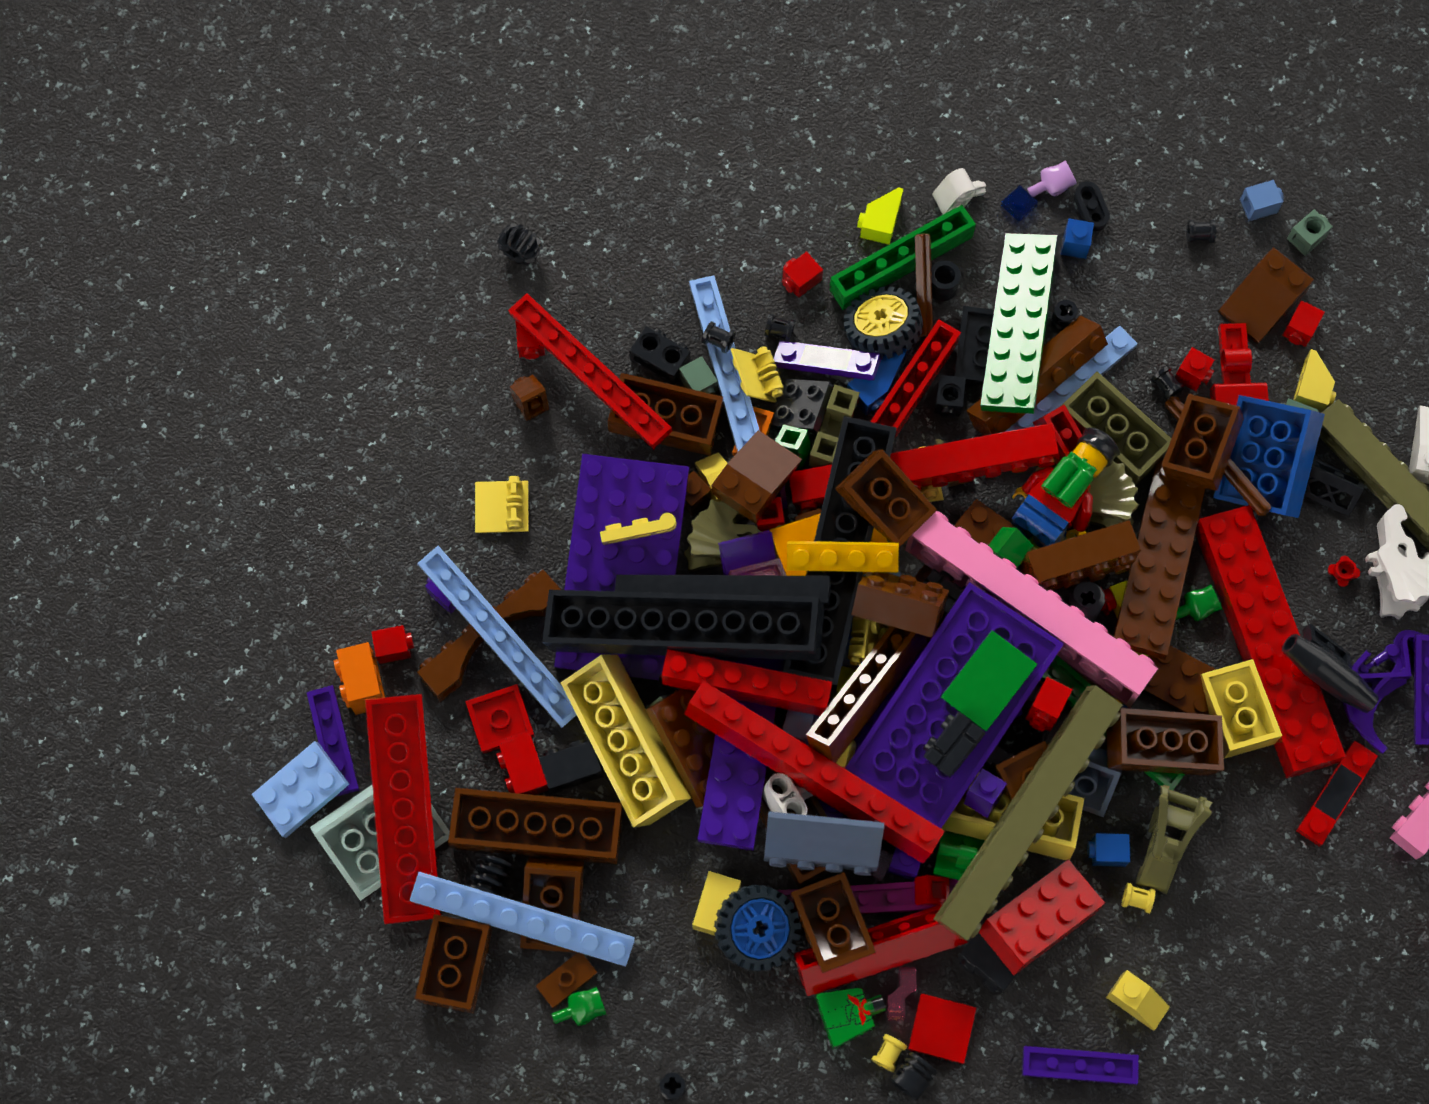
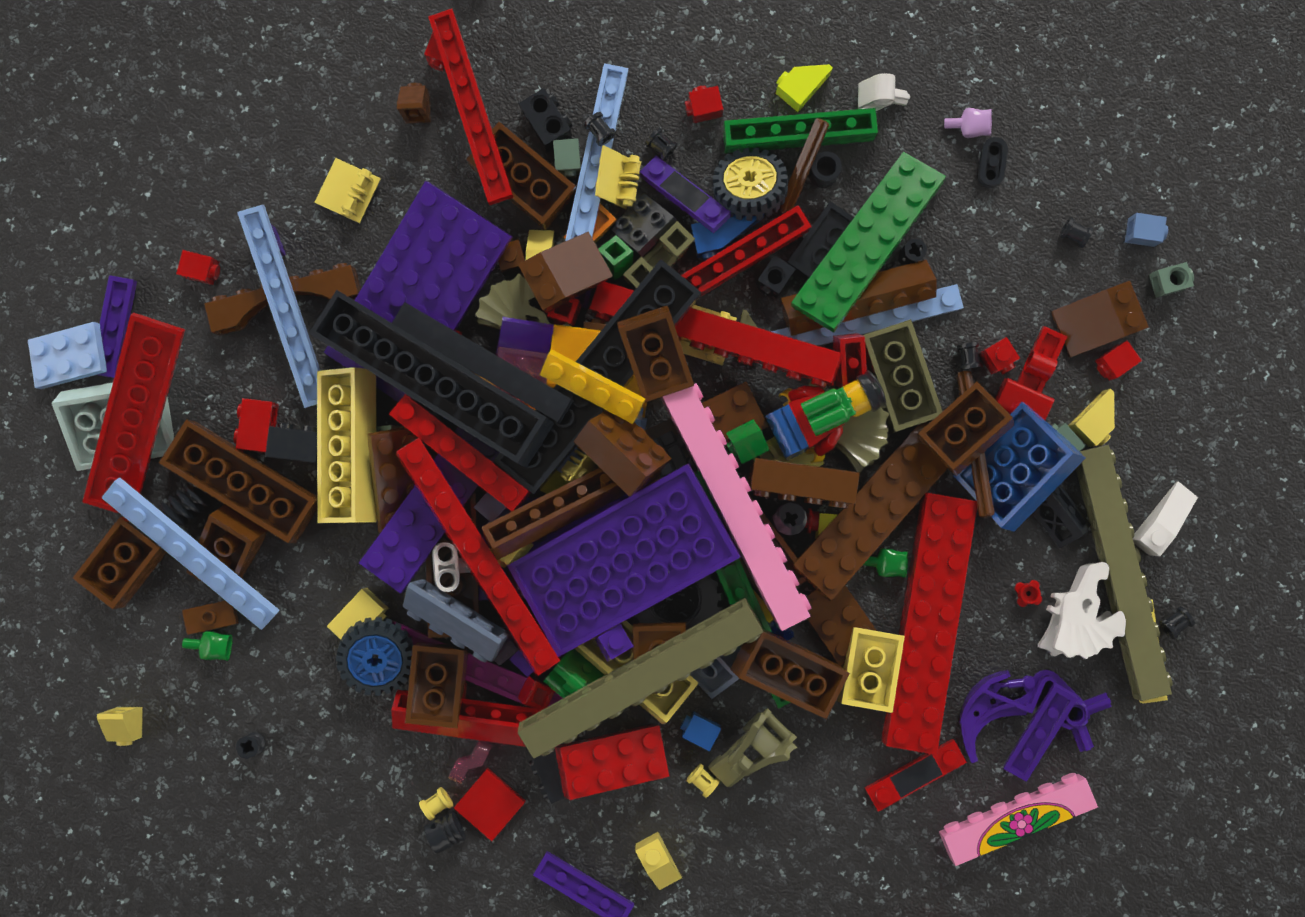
camera: 30 degrees right, 15 degrees up
(360, 675) = (154, 286): orange brick -> none
(499, 717) = (257, 374): red plate -> none
(639, 528) = (439, 272): light yellow plate -> none
(847, 1014) = (418, 757): green torso -> none
(953, 744) = (602, 596): black brick -> none
(989, 681) = (659, 557): green tile -> none
(1019, 203) = (930, 129): clear blue plate -> none
(1048, 705) = (702, 598): red brick -> none
(1077, 238) = (962, 187): blue brick -> none
(1329, 668) = (962, 672): black plate -> none

